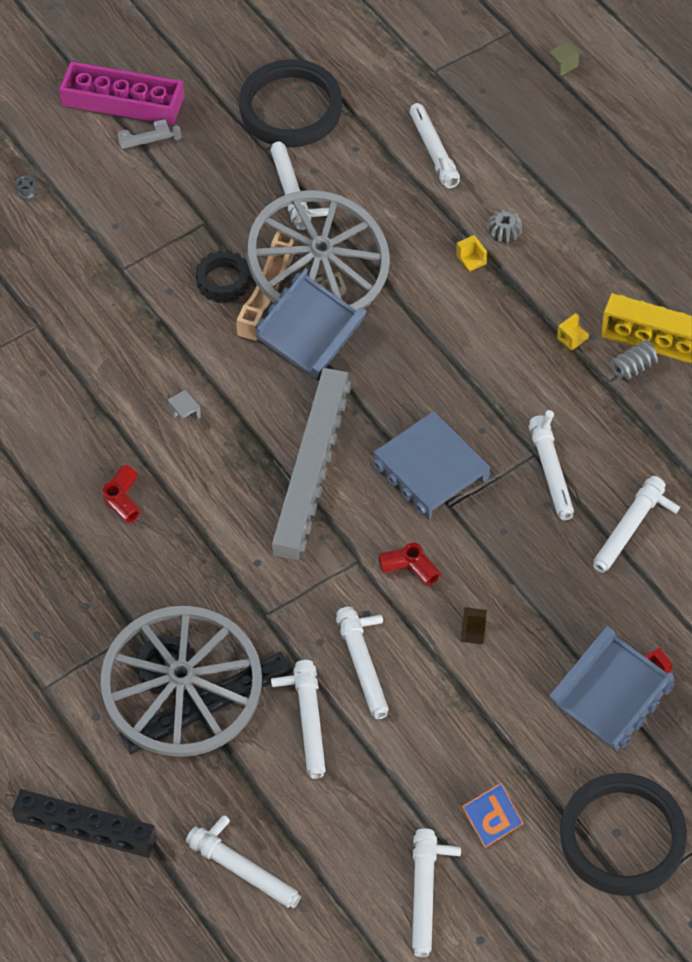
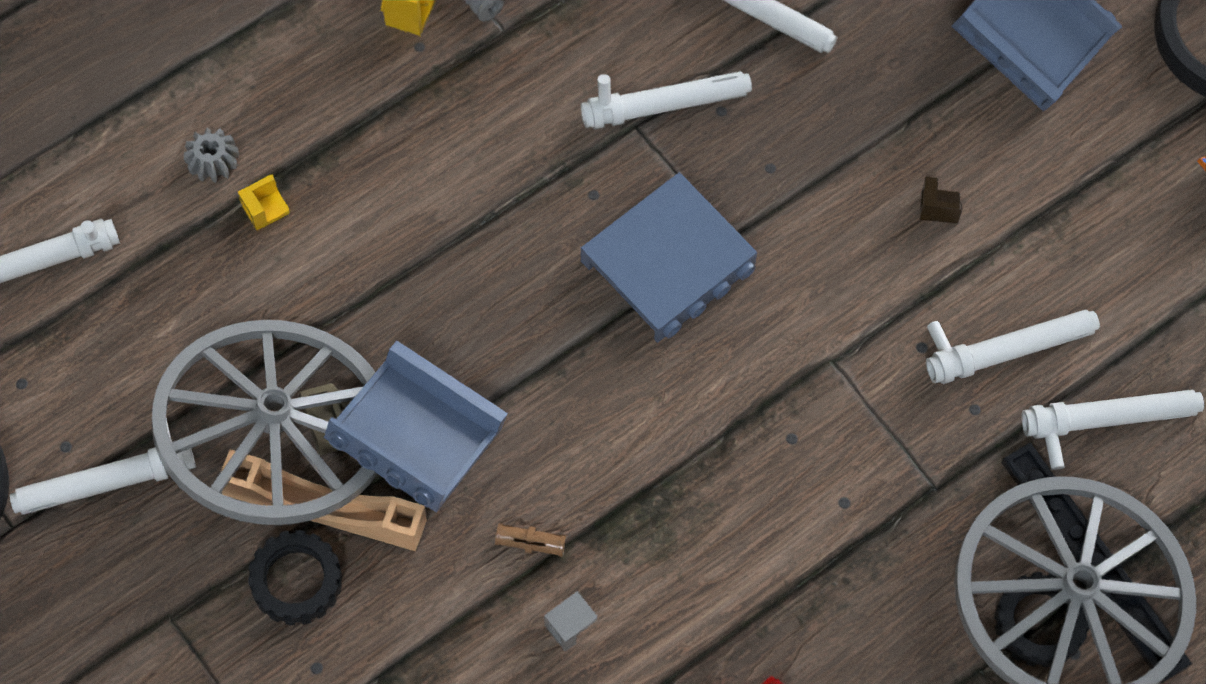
camera: 95 degrees left, 10 degrees up
(239, 391) = (530, 539): none -> medium nougat pin
(310, 464) = (669, 424): light grey brick -> none
(419, 565) = (838, 297): red piece -> none
(571, 333) = (421, 69): yellow panel -> none

